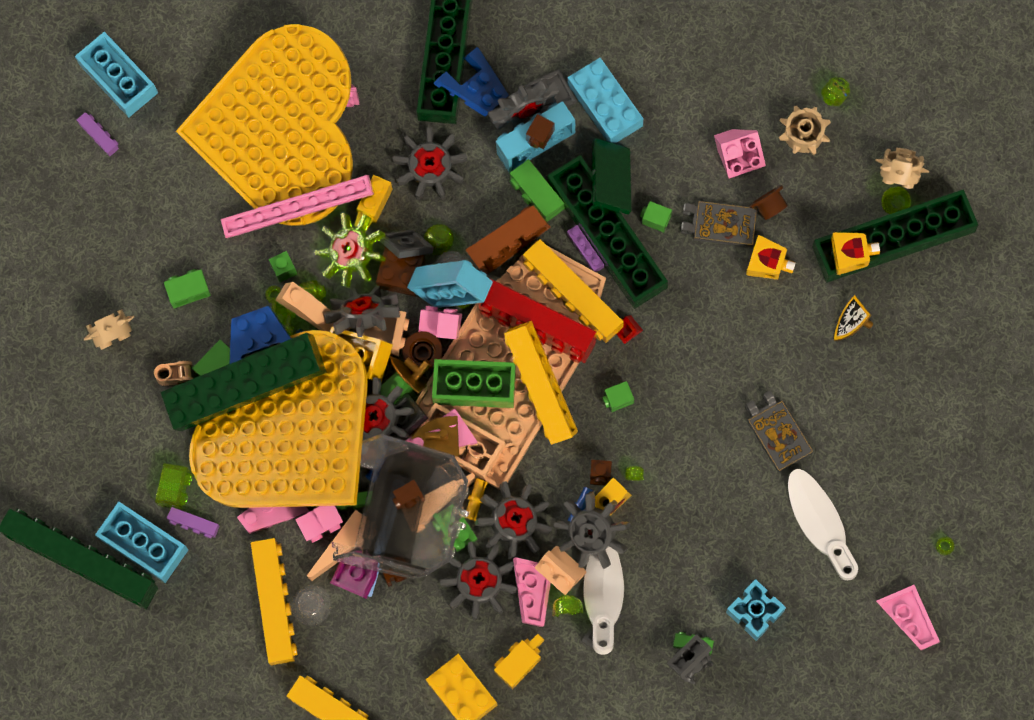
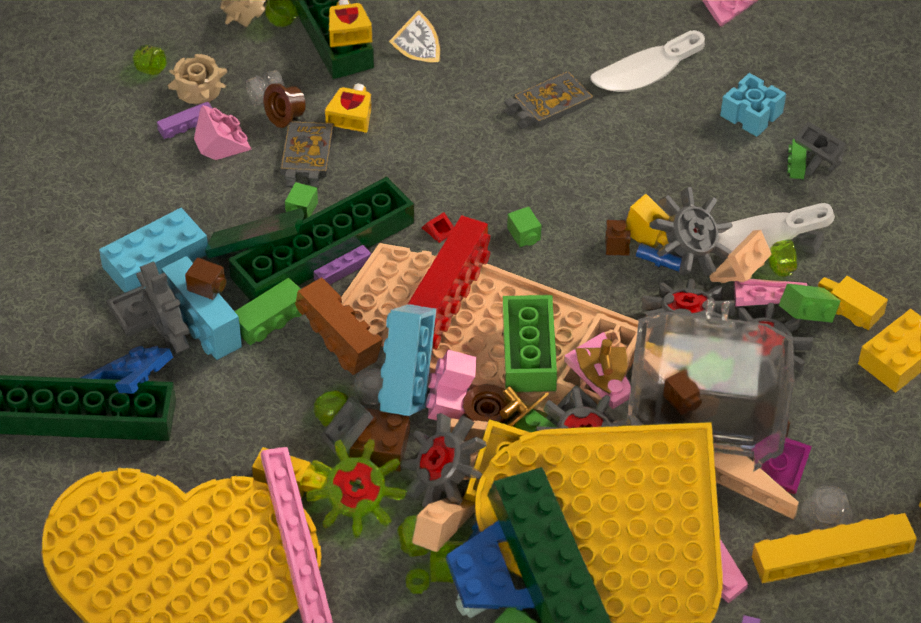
camera: 100 degrees left, 25 degrees down
(283, 266) = (380, 567): bright green brick -> none
(319, 521) = (732, 509): bright pink brick -> none
(430, 153) = (232, 420): dark grey gear -> none
(510, 619) = (809, 303): none -> bright green brick
(540, 382) = (522, 276): yellow brick -> none
(572, 291) = (397, 265): yellow brick -> none
(634, 473) = (613, 211): clear neon green axle -> none
(762, 124) = (180, 122): none -> medium lavender piece
(794, 187) = (256, 85): none -> clear wheel

